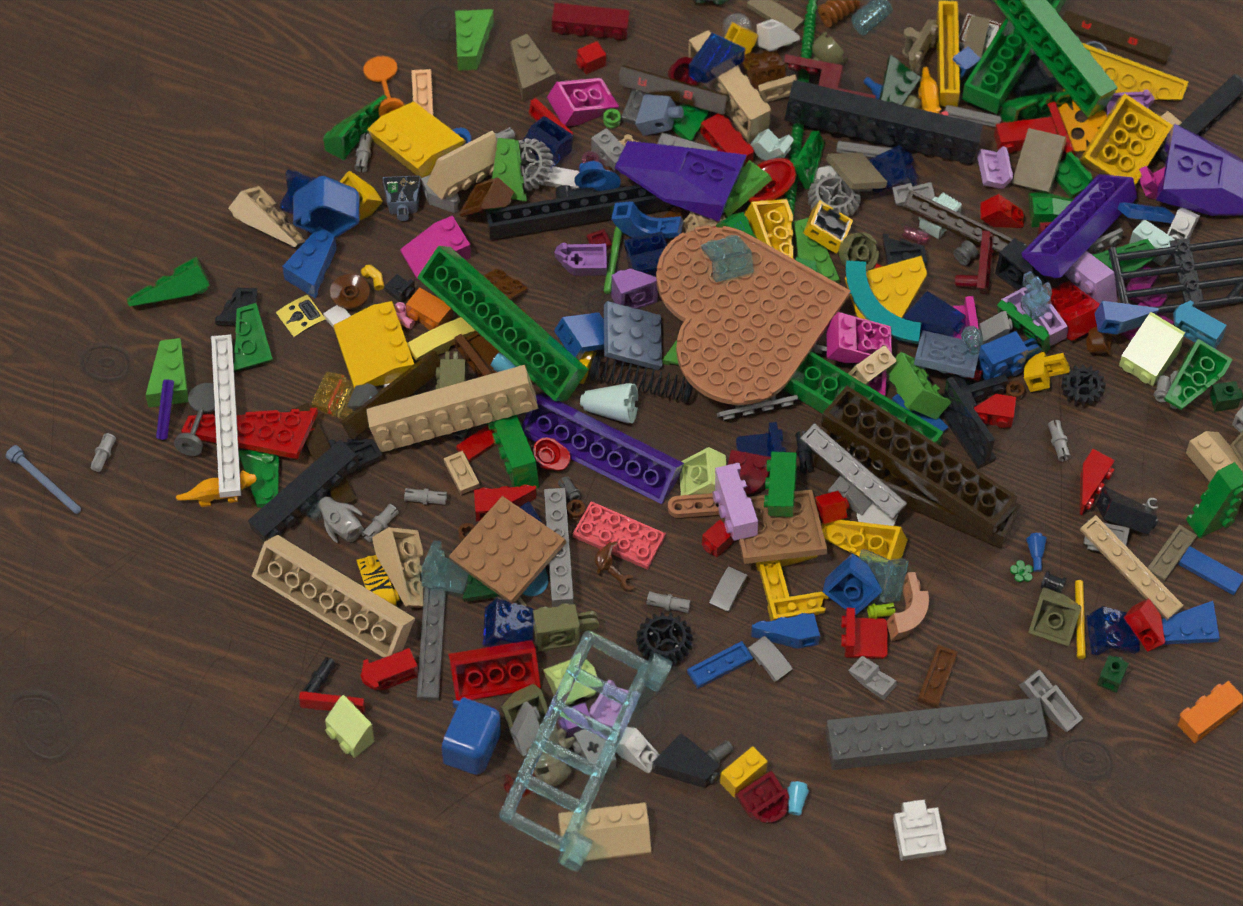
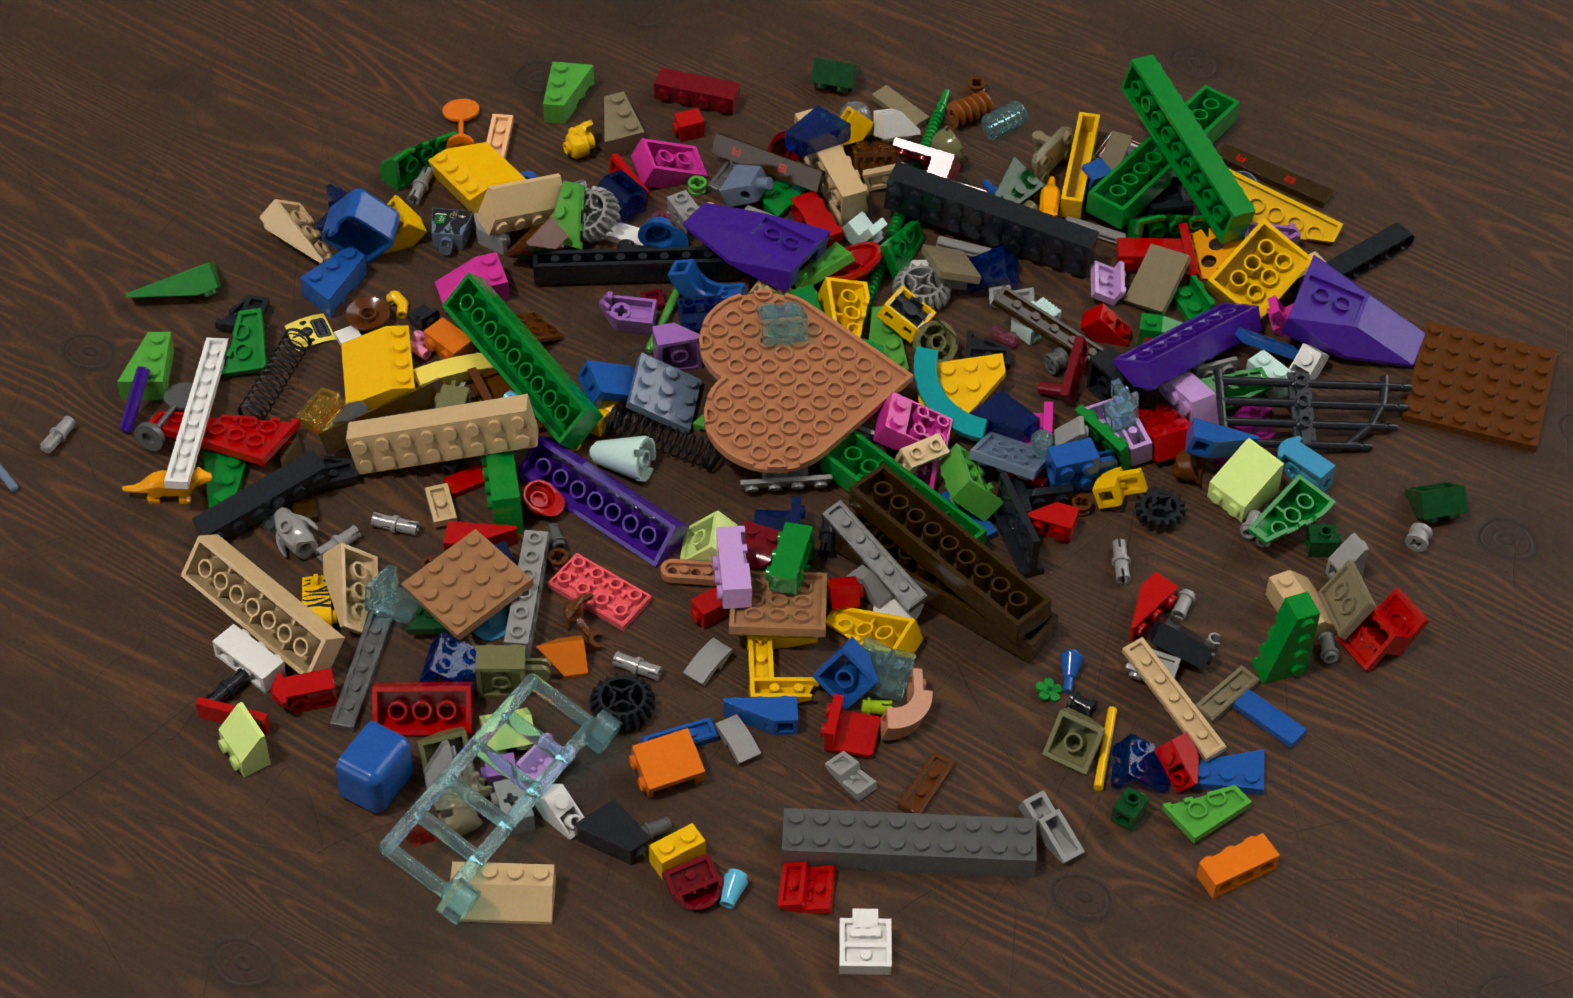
camera: 10 degrees right, 10 degrees down
(269, 402) = (301, 347): none -> black piece
(331, 643) = (242, 651): none -> white brick
(497, 88) = (579, 140): none -> yellow head
(606, 600) = (567, 655): none -> orange slope
(716, 691) = (666, 762): none -> orange panel
(858, 787) = (807, 888): none -> red slope
(1121, 468) = (1185, 600): none -> light grey pin
(1176, 667) = (1207, 813): none -> bright green wing

